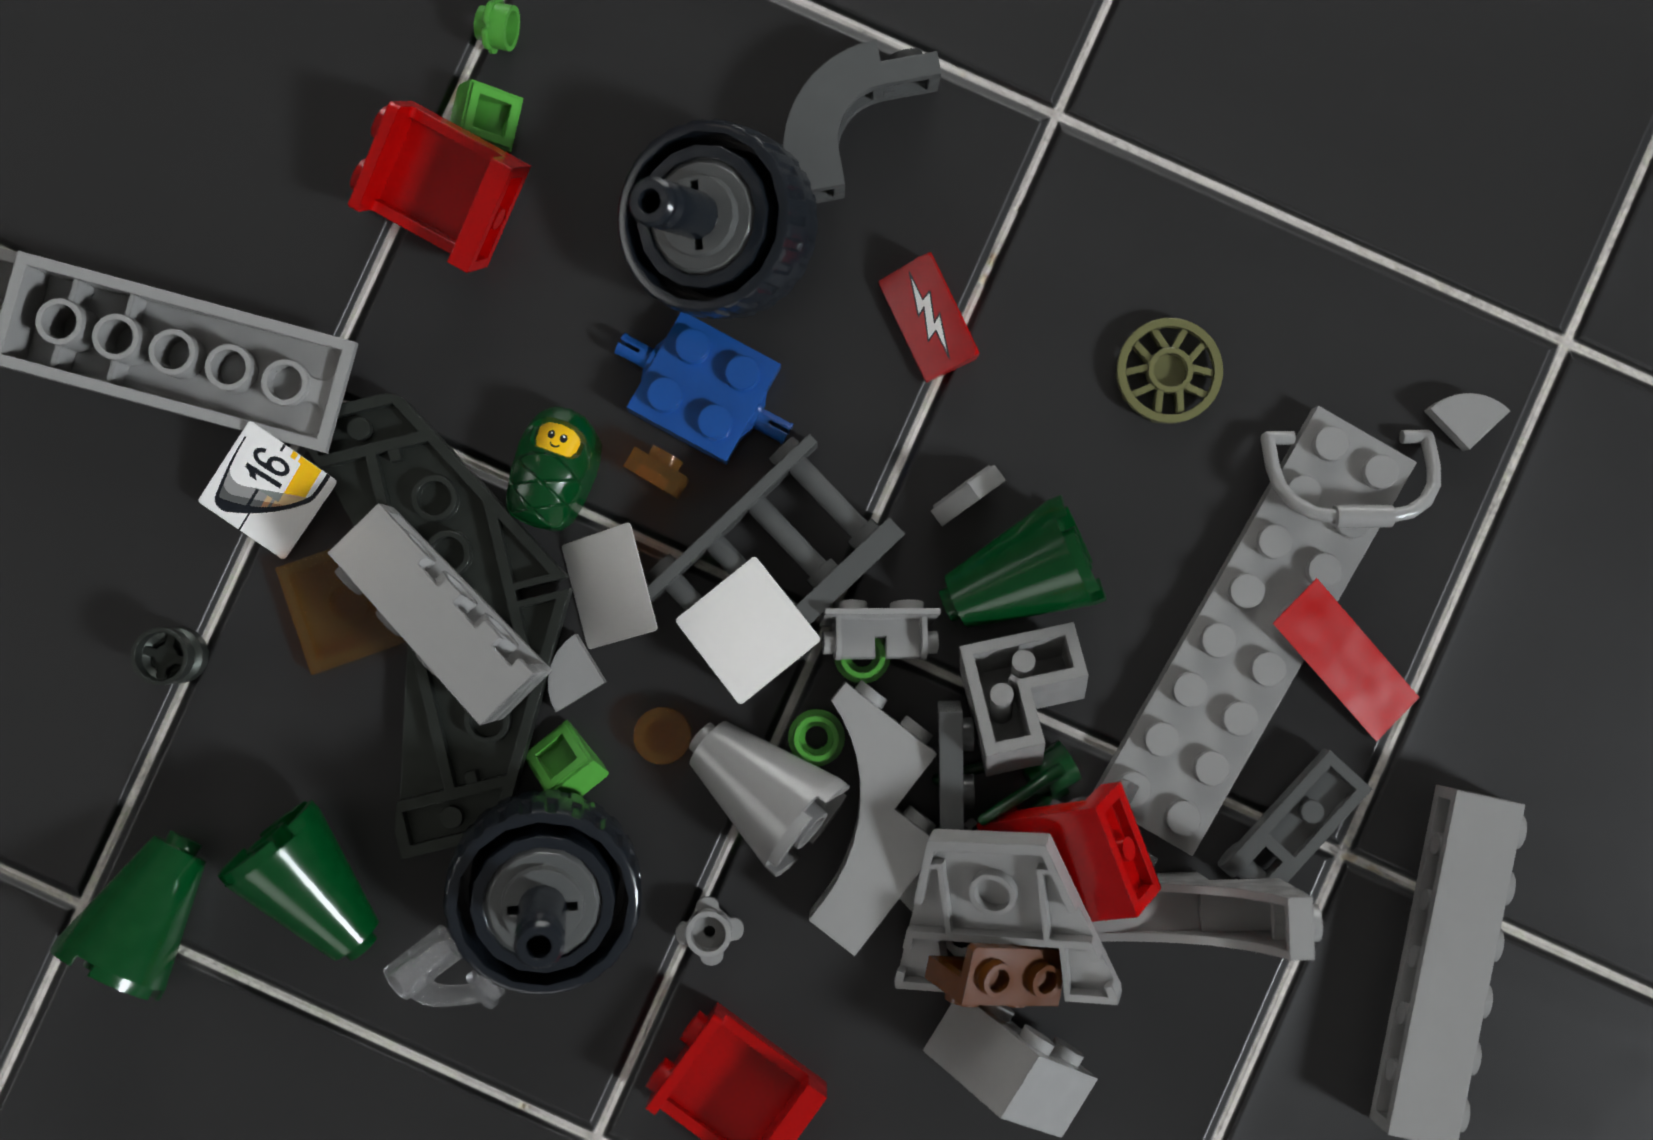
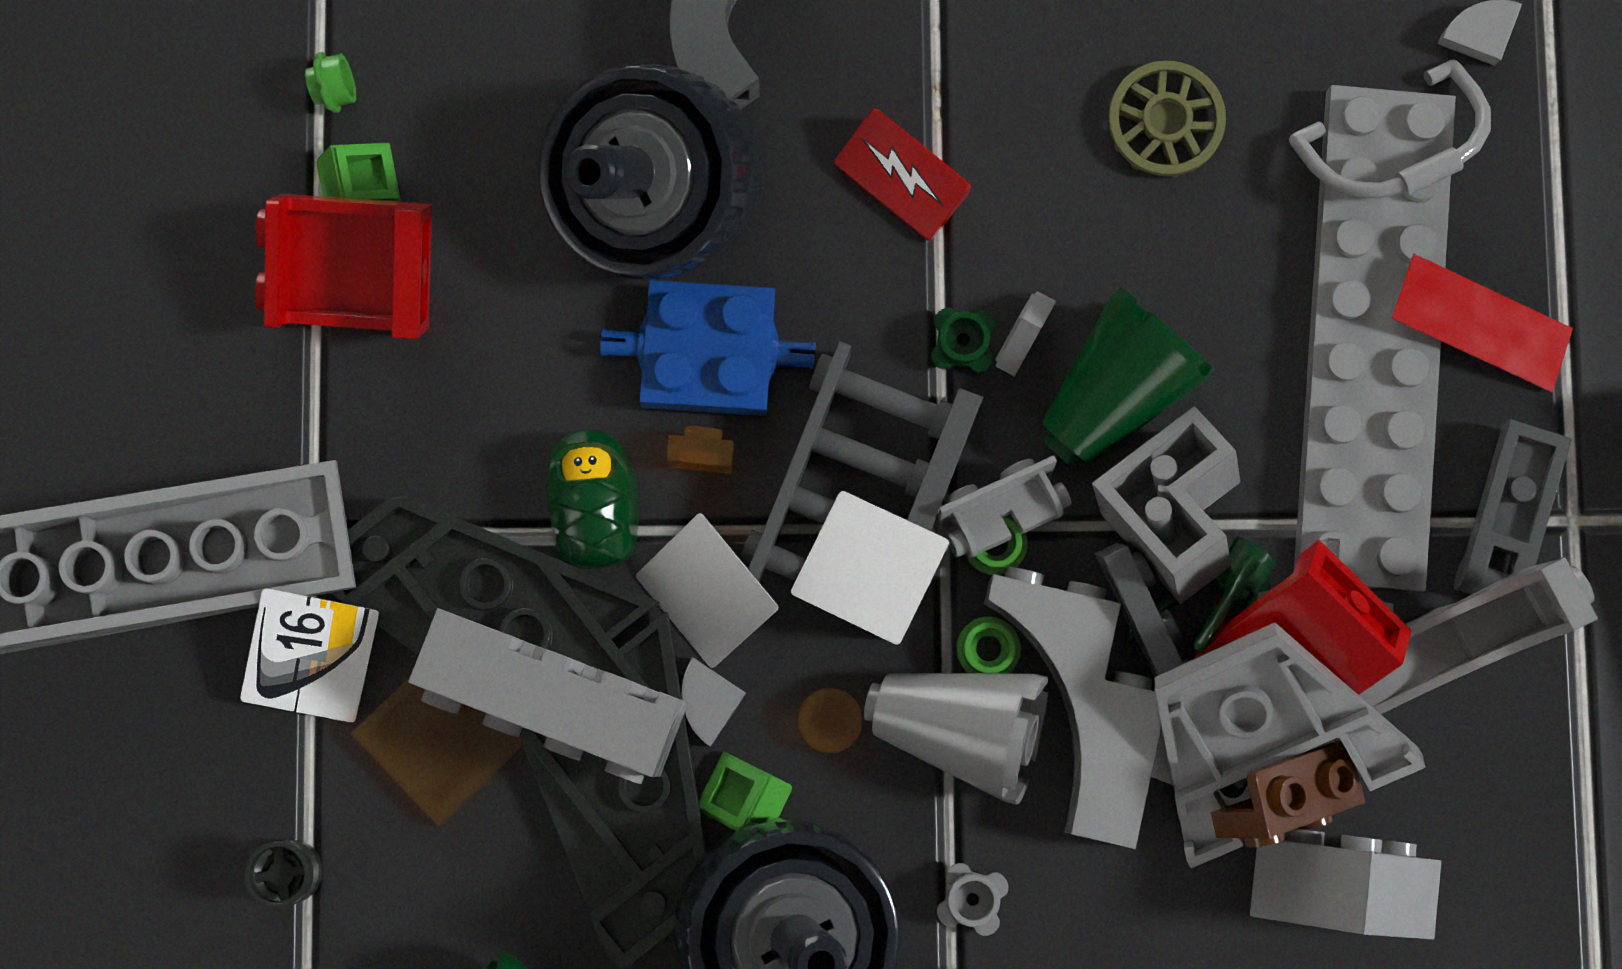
camera: 25 degrees left, 5 degrees down
(930, 473) = (974, 325): none -> dark green plate

